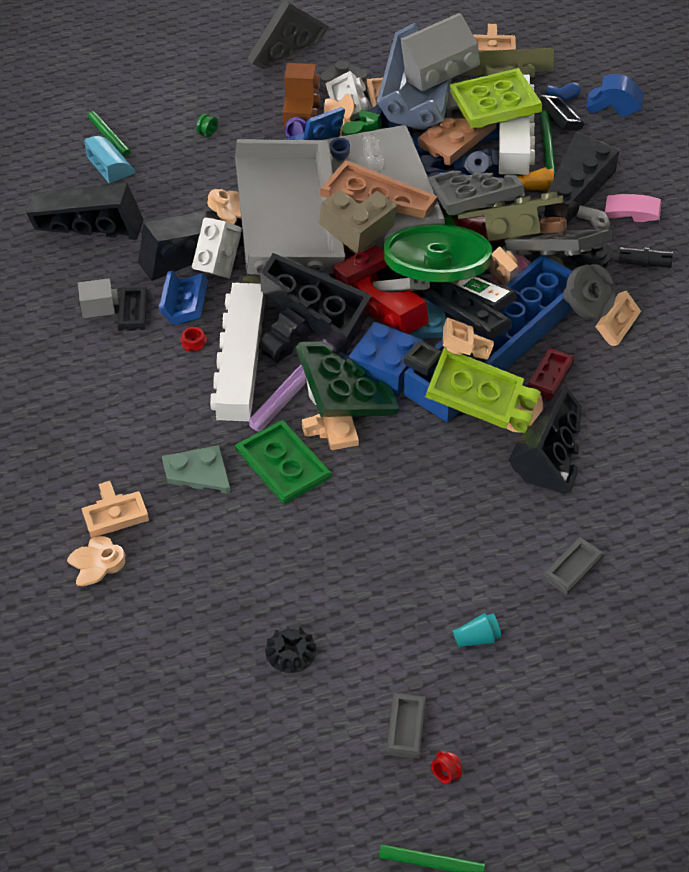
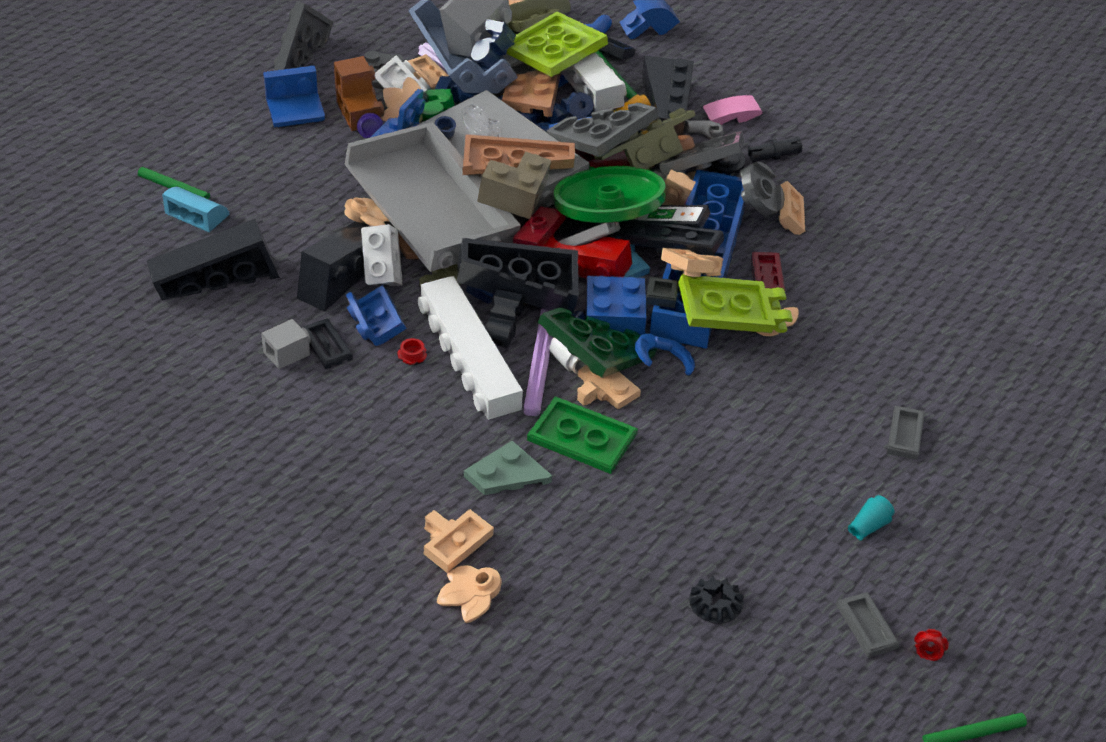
camera: 30 degrees left, 5 degrees down
(207, 125) = (275, 147): green bush -> none
(251, 84) = (293, 96): none -> blue bracket
(392, 398) = (649, 341): none -> blue piece
(435, 87) = (488, 50): none -> dark blue leg
(546, 447) = (812, 338): black wedge -> none

